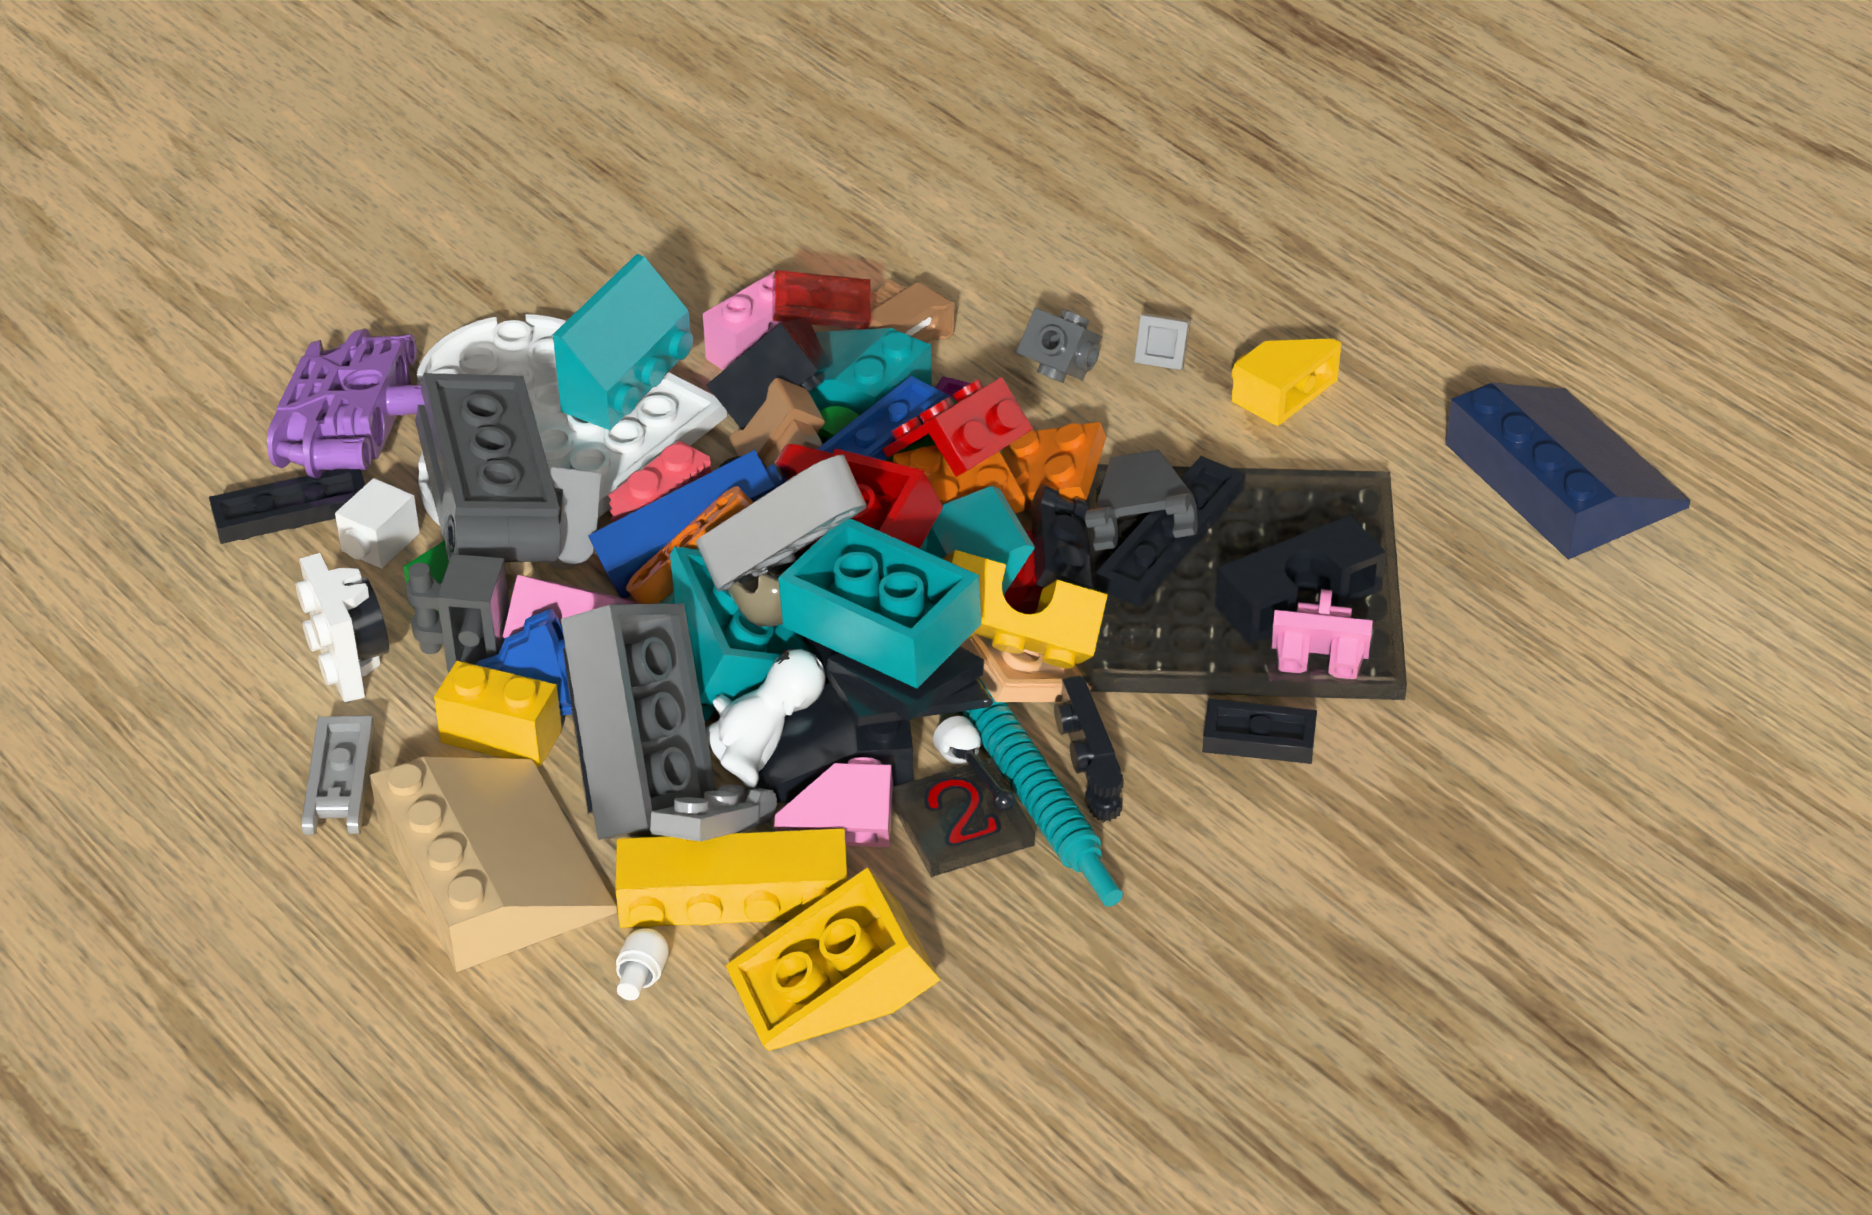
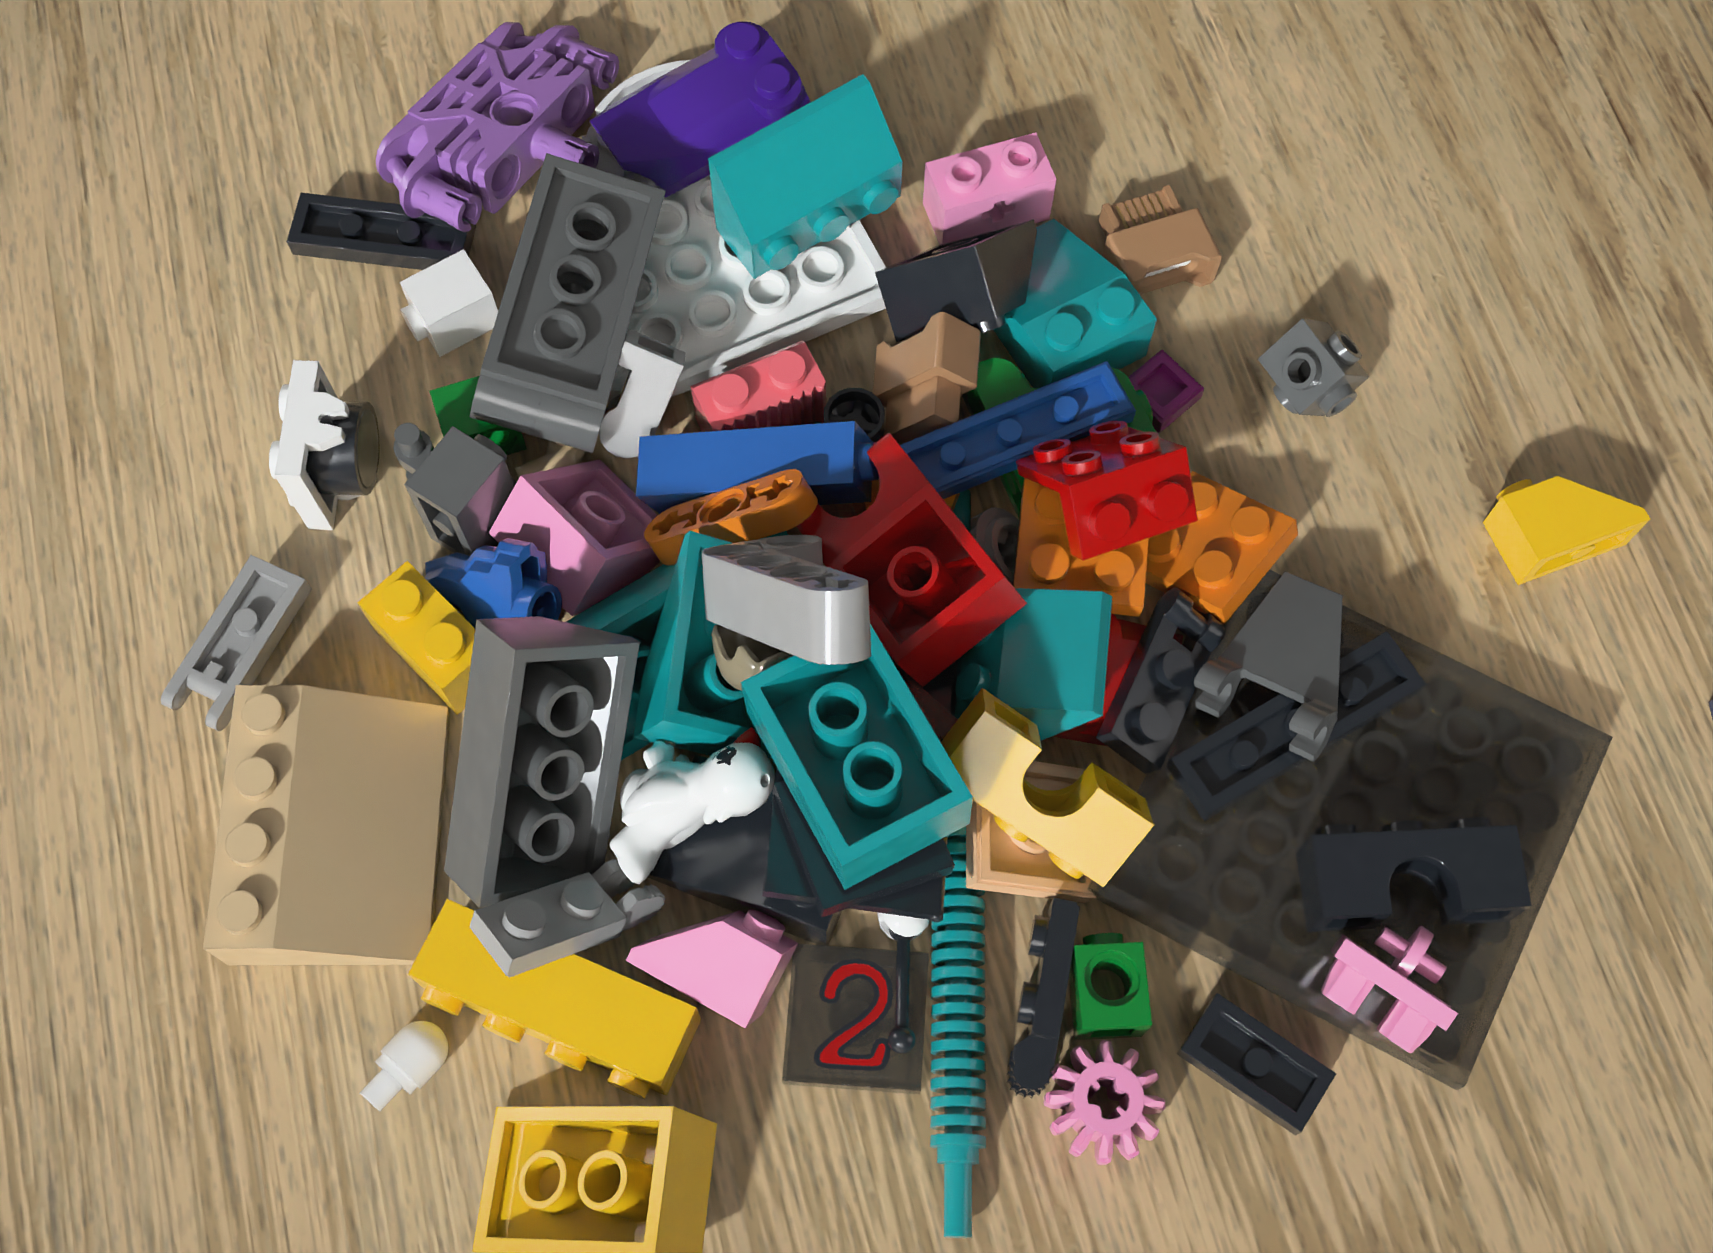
camera: 25 degrees right, 25 degrees up
(513, 332) = (702, 108): none -> dark purple slope
(821, 299) = (1064, 200): clear red plate -> none
(1136, 727) = (1103, 1018): none -> green brick
(1162, 341) = (1440, 409): tile -> none
(1168, 786) = (1121, 1086): none -> bright pink gear

